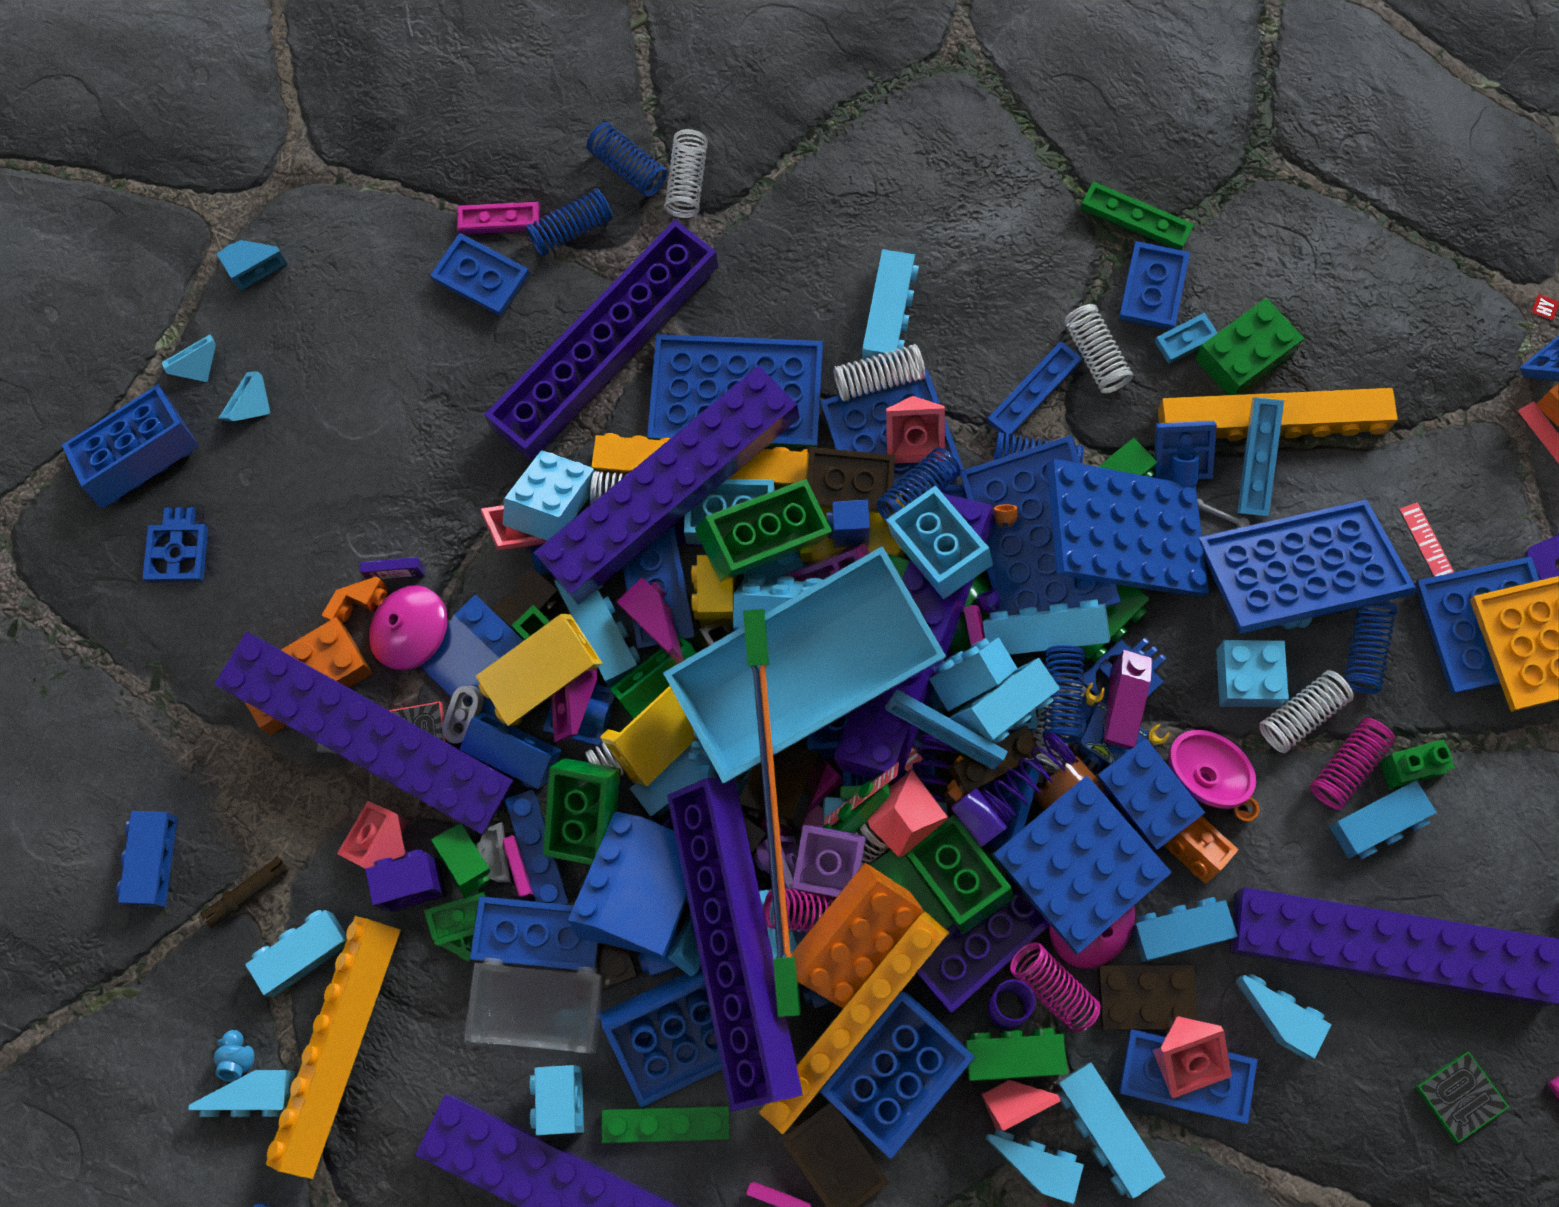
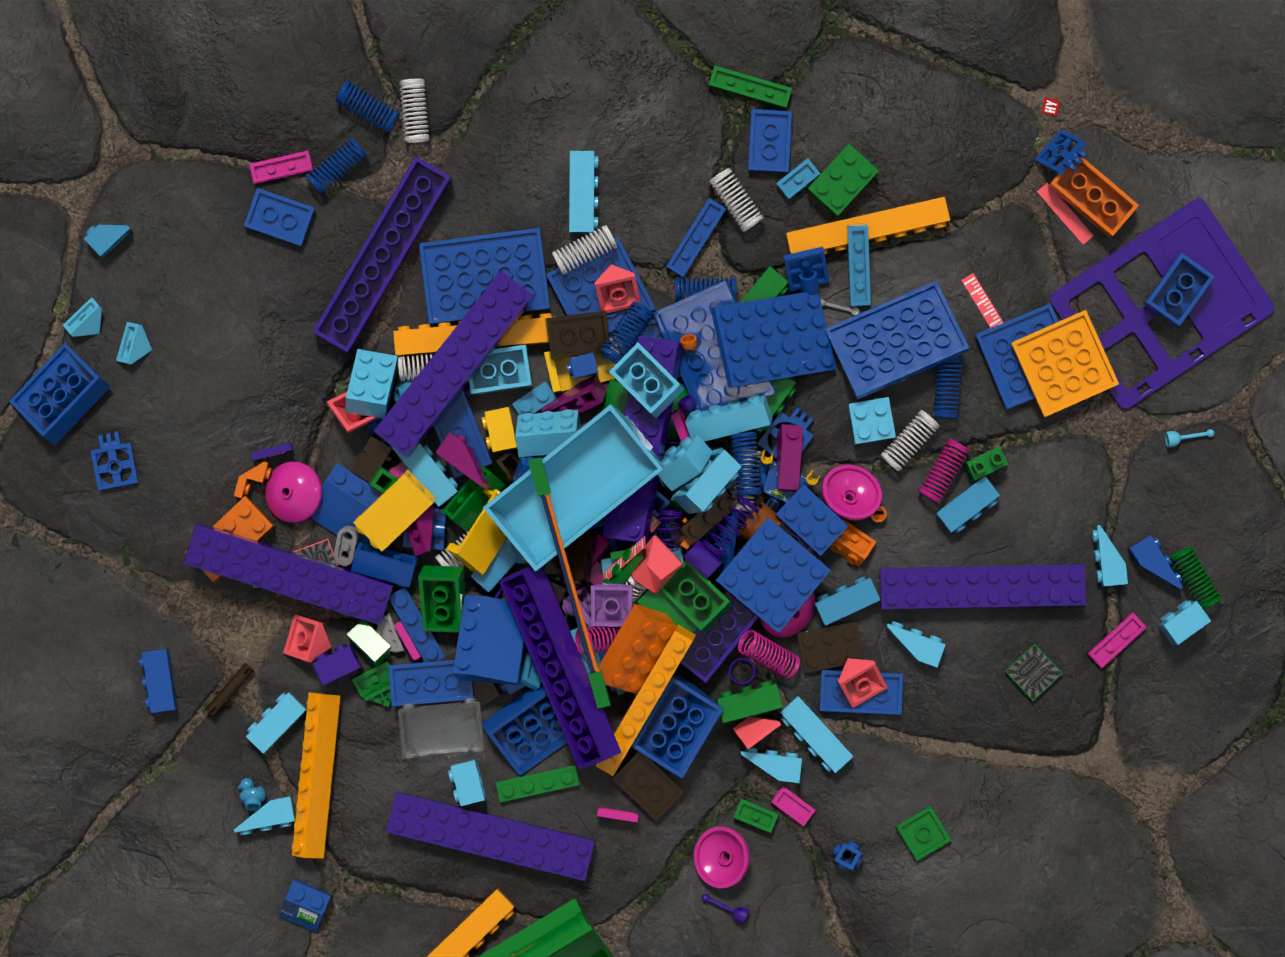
camera: 15 degrees left, 15 degrees up
(762, 530) = (526, 388): green brick -> none
(945, 729) = (671, 508): dark azure tile -> none

